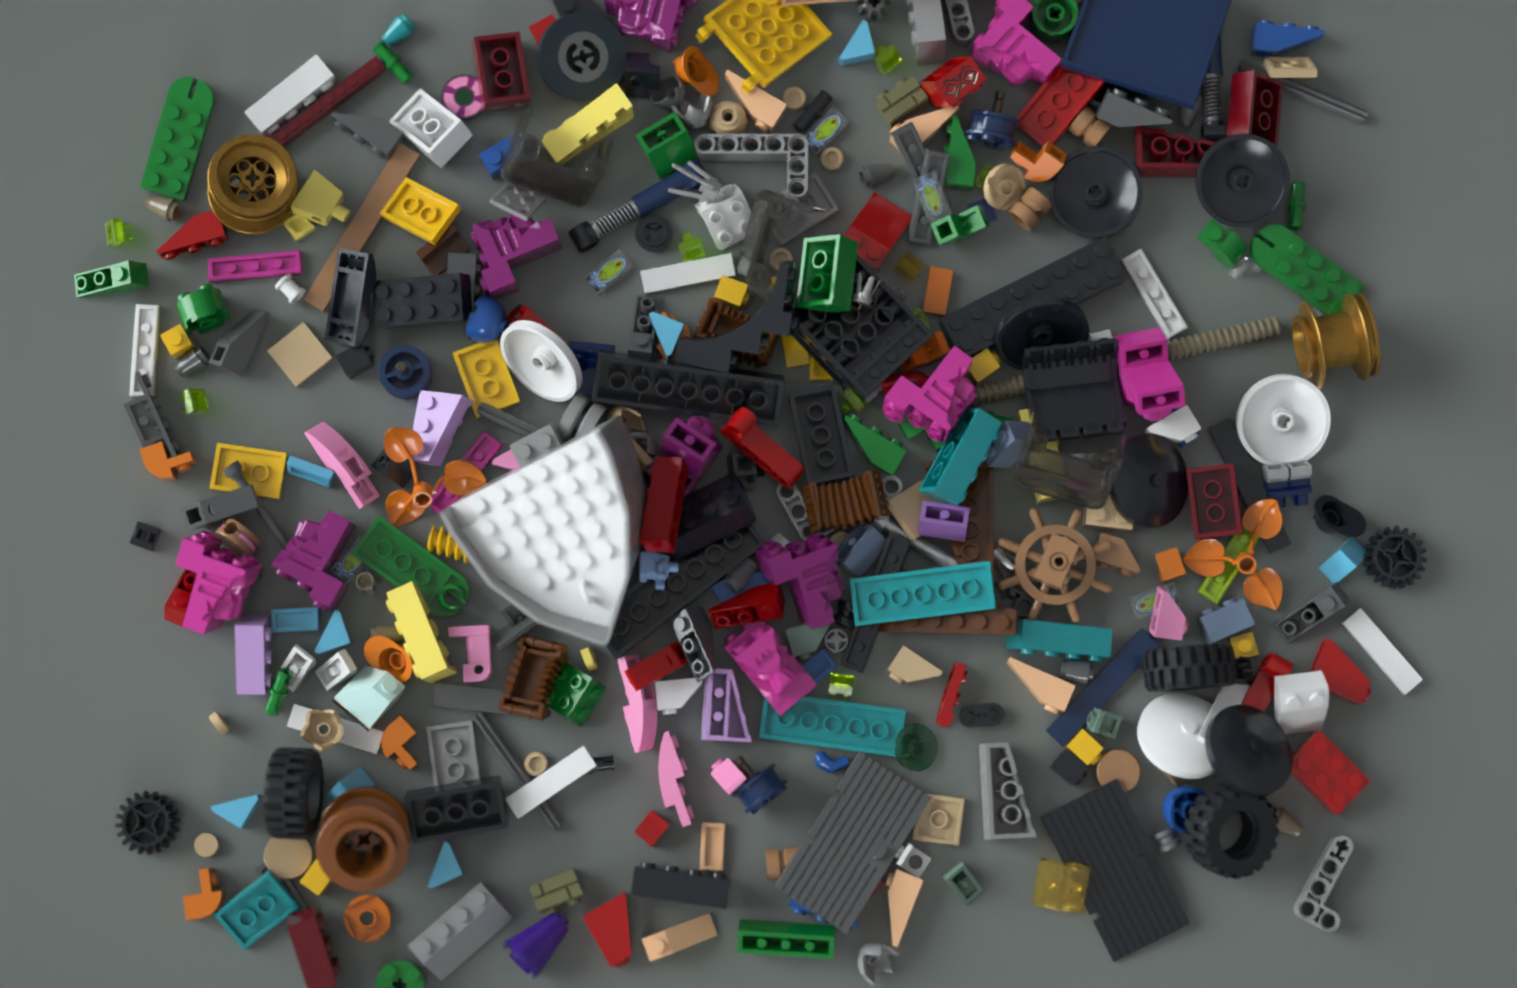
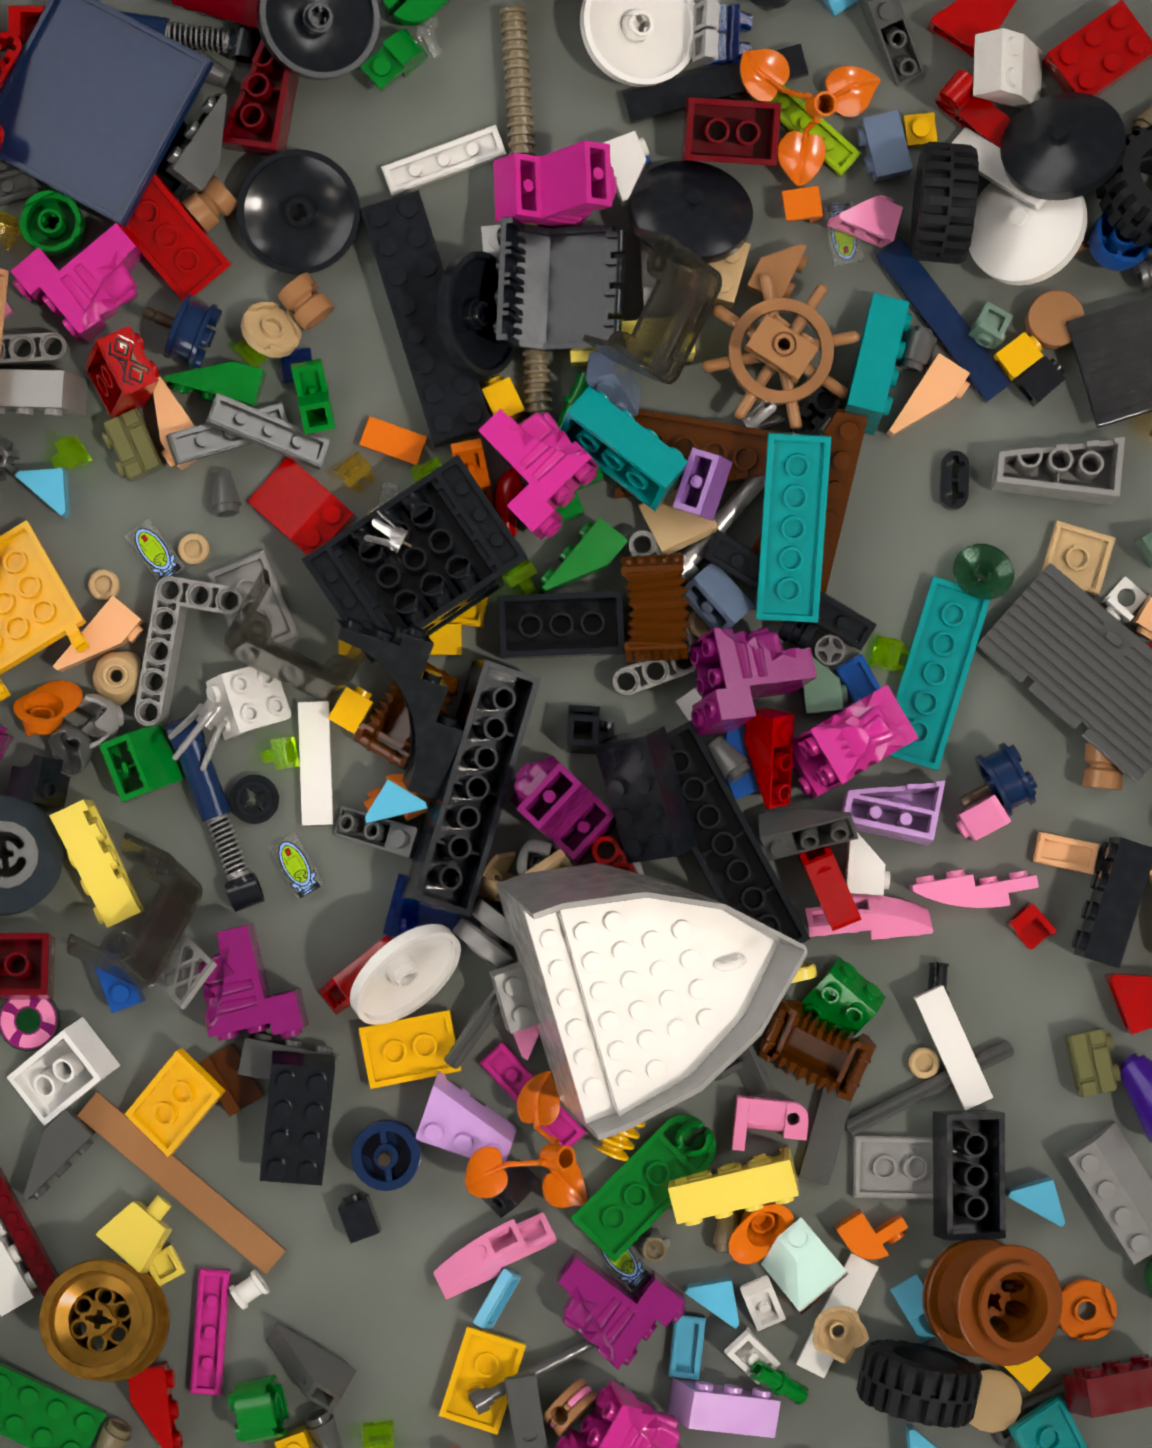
camera: 80 degrees left, 5 degrees up
(300, 354) = (338, 1289): tan tile -> none
(350, 297) = (276, 1211): black slope -> none
(487, 321) = (338, 1036): blue cylinder -> none
(656, 567) = (702, 866): light blue piece -> none
(664, 504) = (626, 844): red brick -> none
(761, 448) = (572, 702): red beam -> none
(778, 256) = (317, 638): tan tile -> none
(812, 111) = (126, 563): black pin -> none
(827, 273) = (357, 579): green slope -> none
(828, 764) = (986, 685): blue arm -> none
(911, 667) = (880, 560): tan slope -> none
(931, 197) = (270, 426): clear tile -> none
(951, 696) = (922, 515): red hinge -> none
(1039, 165) = (250, 278): orange brick -> none
(1243, 671) = (954, 133): black tile -> none

